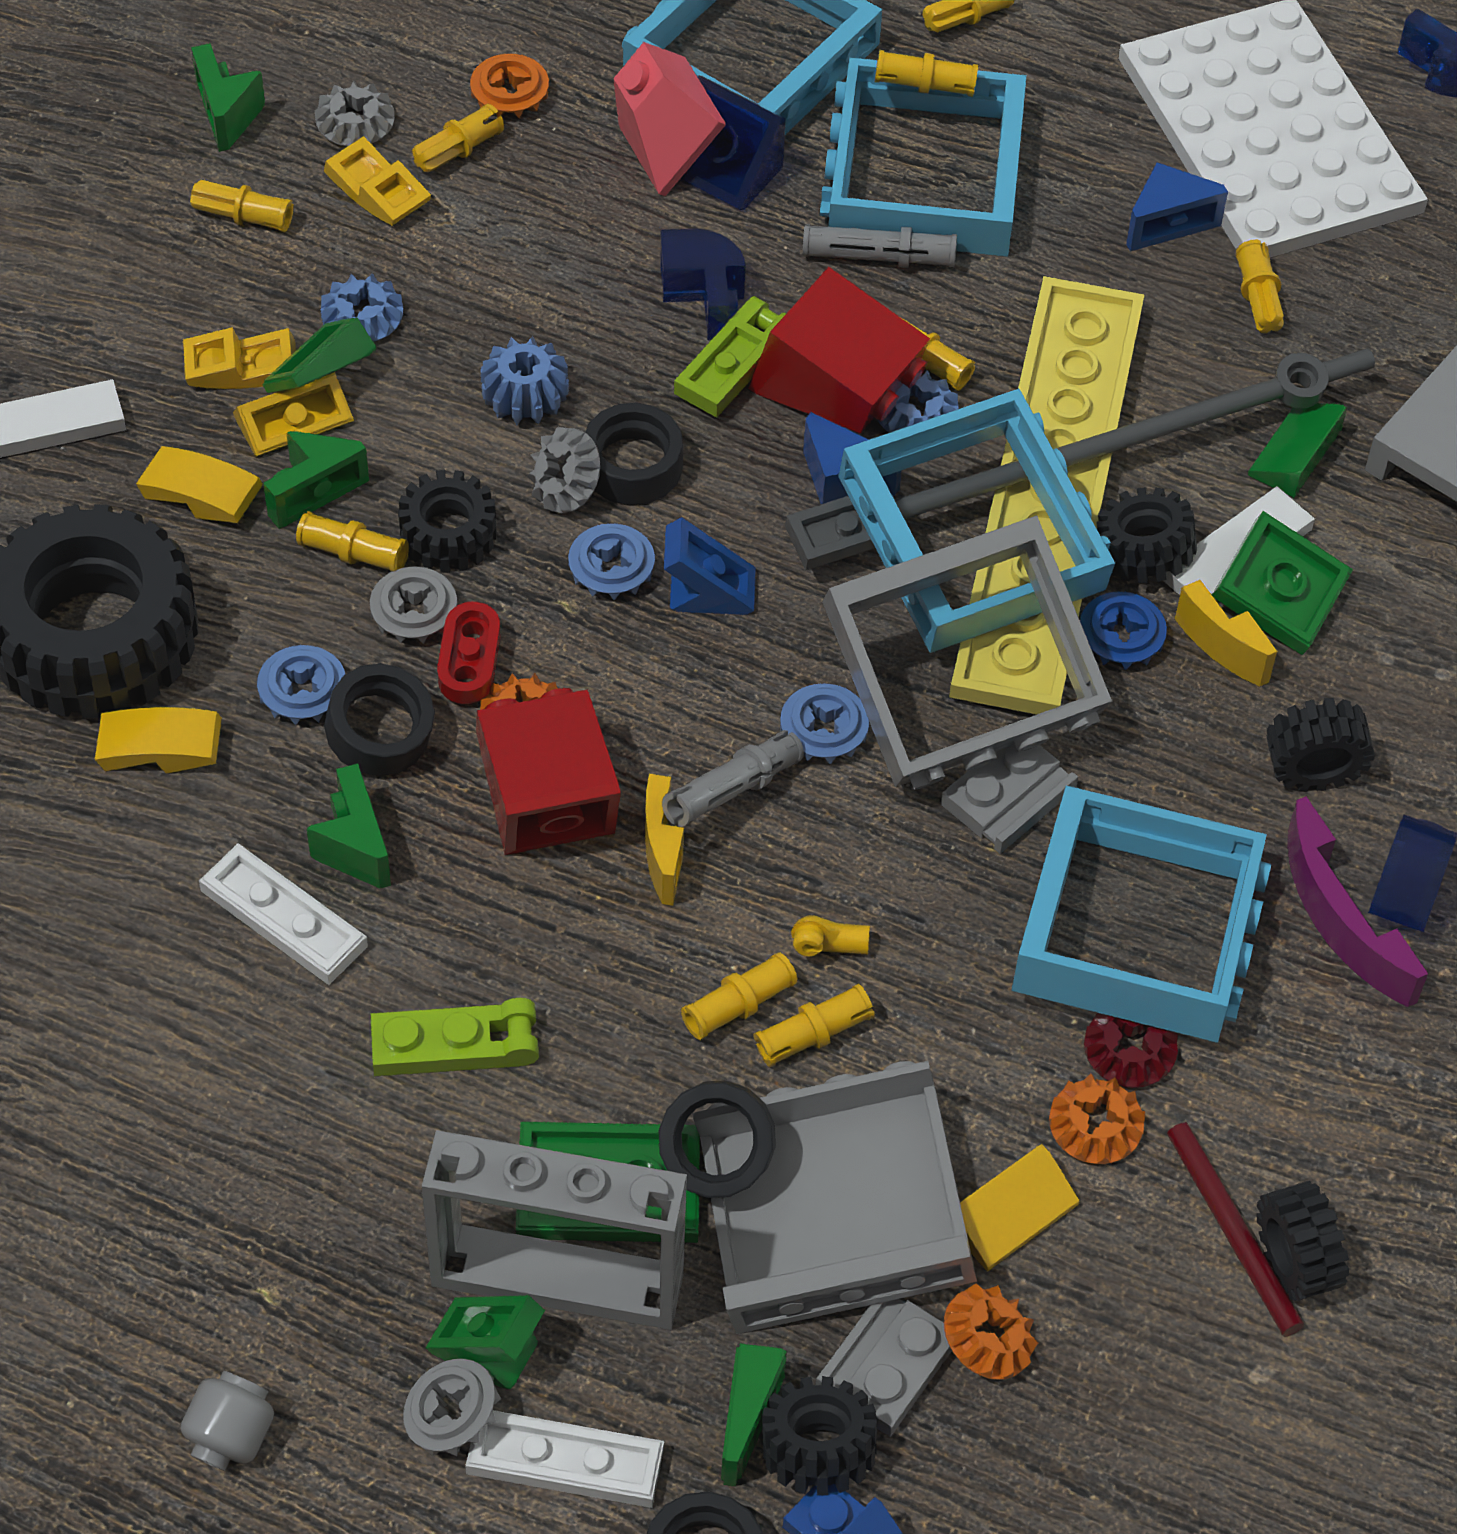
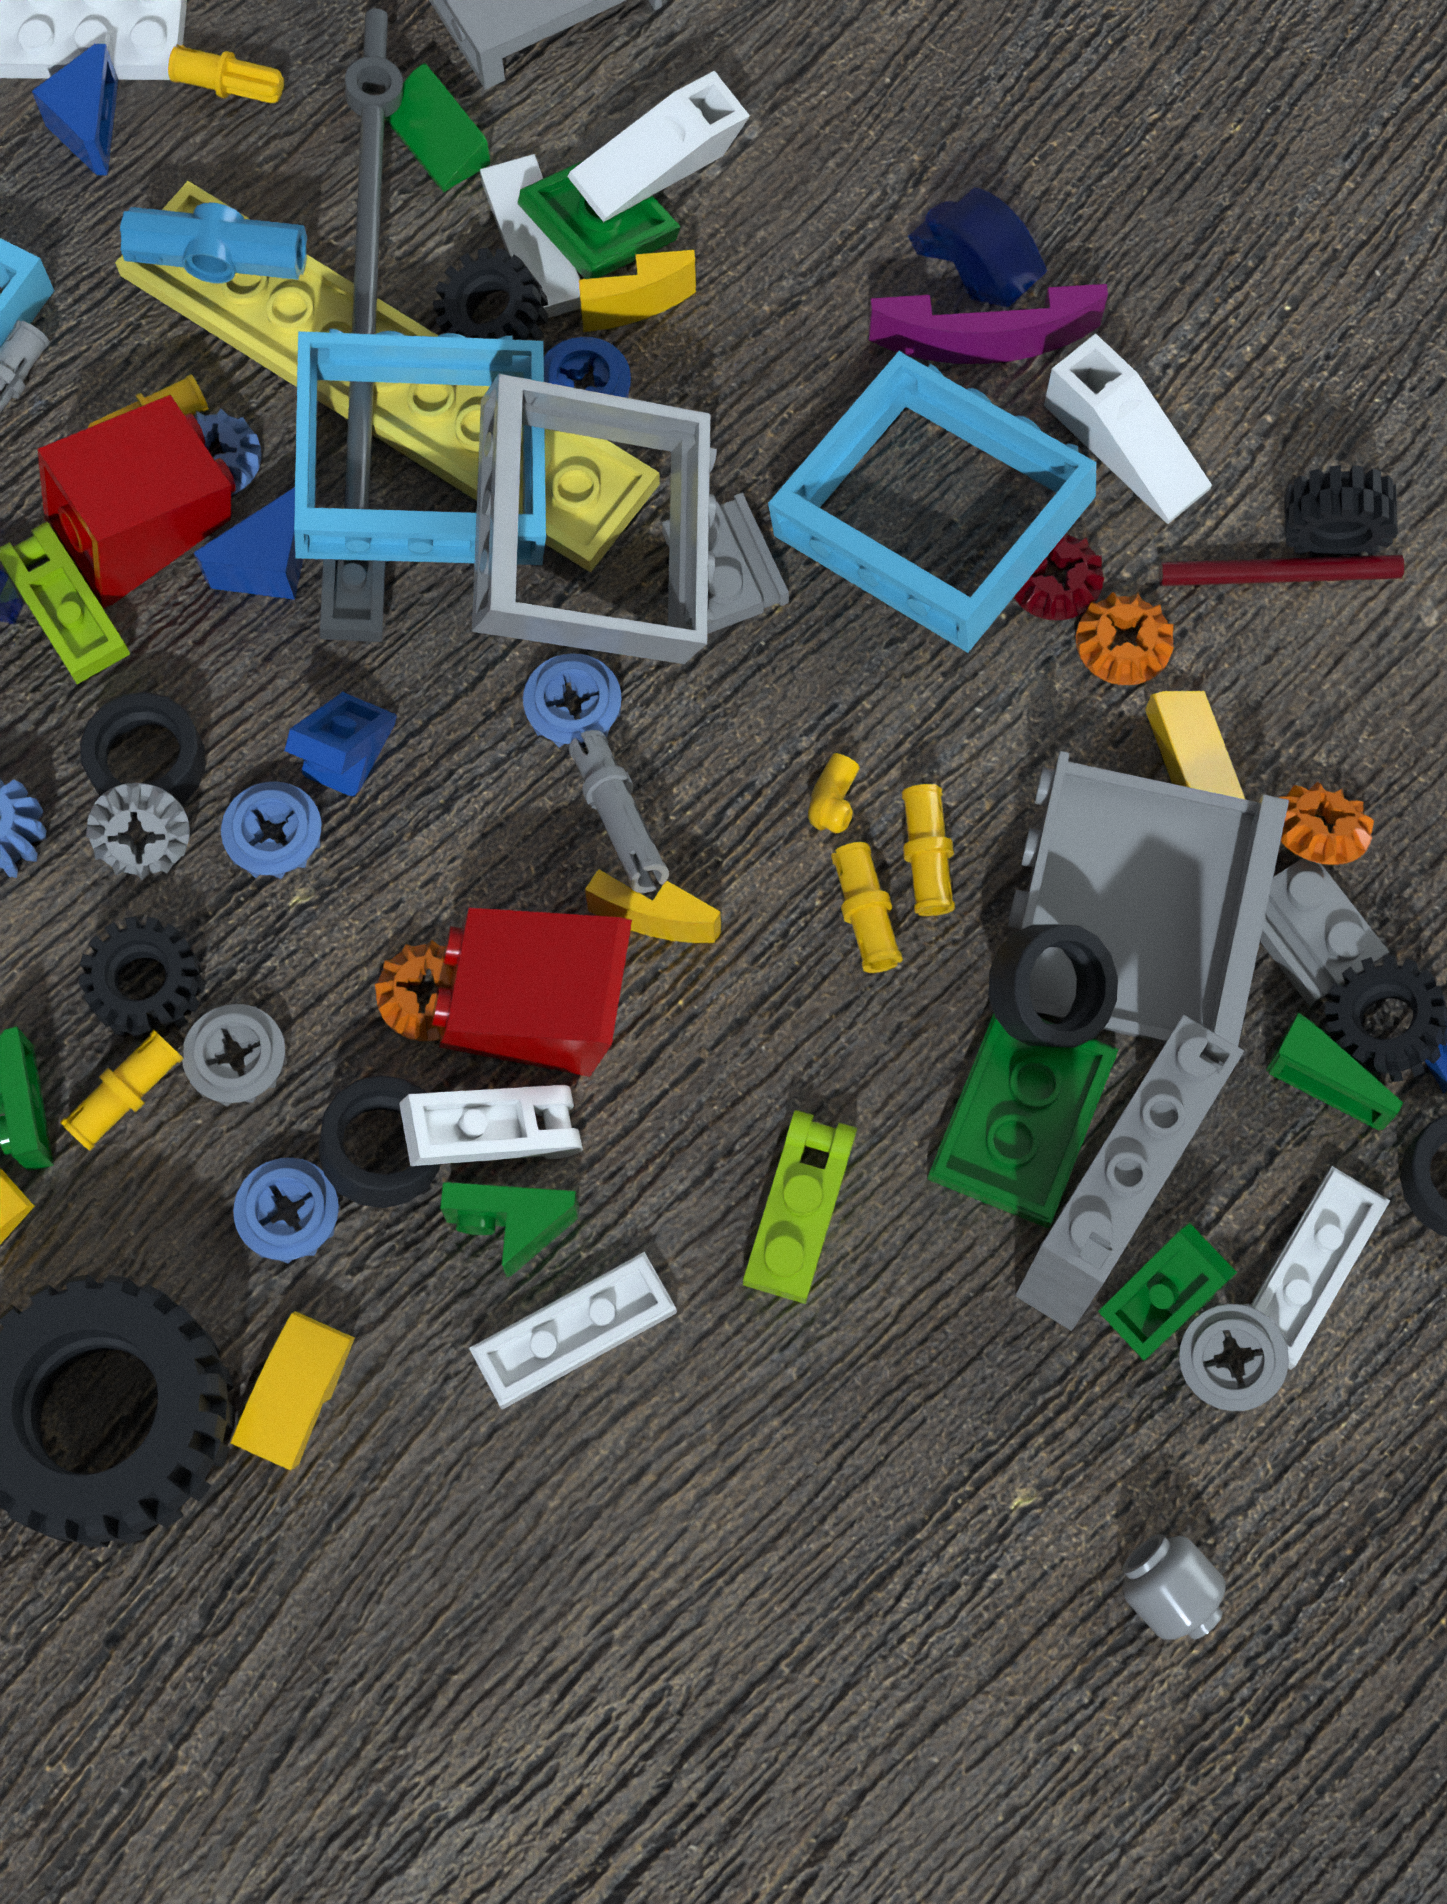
camera: 65 degrees left, 15 degrees up
(420, 782) = (489, 1125): none -> white plate
(468, 657) = (330, 1020): red plate -> none
(1089, 325) = (213, 243): none -> dark azure piece
(1296, 1044) = (1125, 427): none -> white slope
(1320, 744) = (814, 261): black tyre -> none
(1362, 594) = (661, 147): none -> white slope

